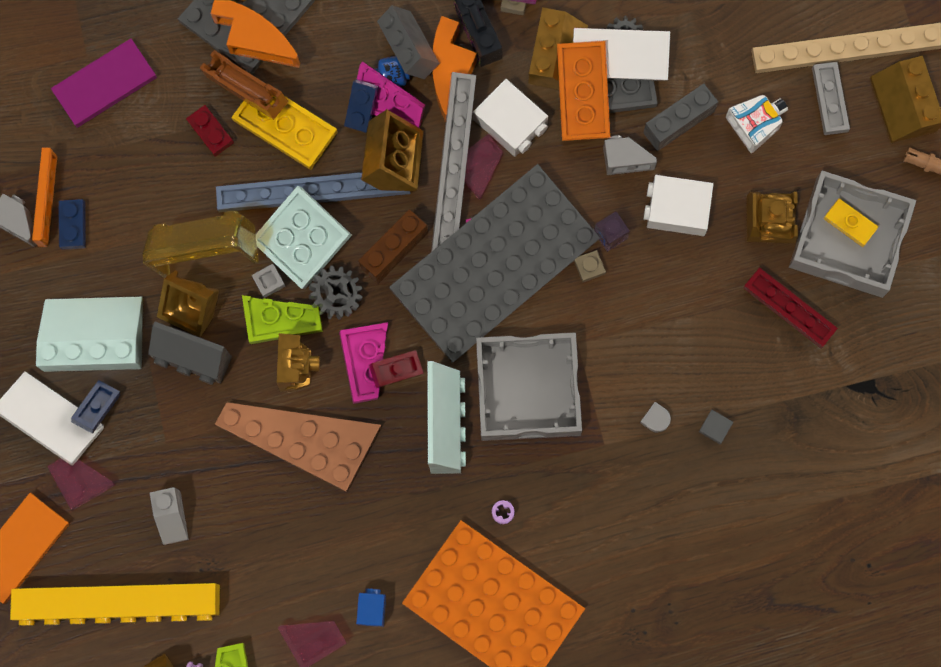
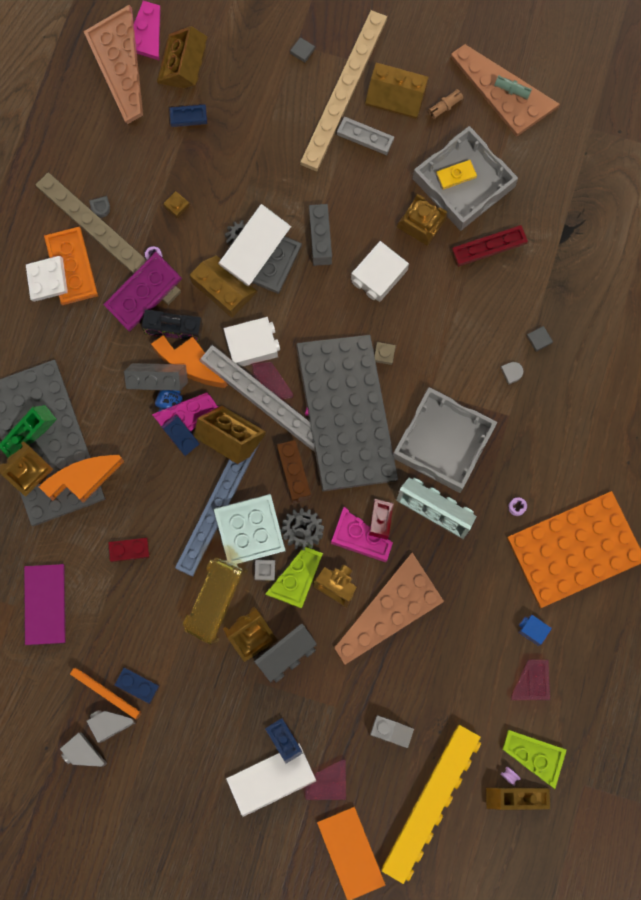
camera: 65 degrees left, 0 degrees up
(90, 334) = (226, 715): light aqua slope -> none
(244, 85) = (114, 505): dark orange piece -> none
(292, 131) = (158, 495): yellow plate -> none
(583, 91) = (264, 283): orange tile -> none
(612, 231) = (371, 324): clear purple brick -> none
(626, 156) = (324, 285): light grey slope -> none
(756, 120) = (352, 189): torso -> none

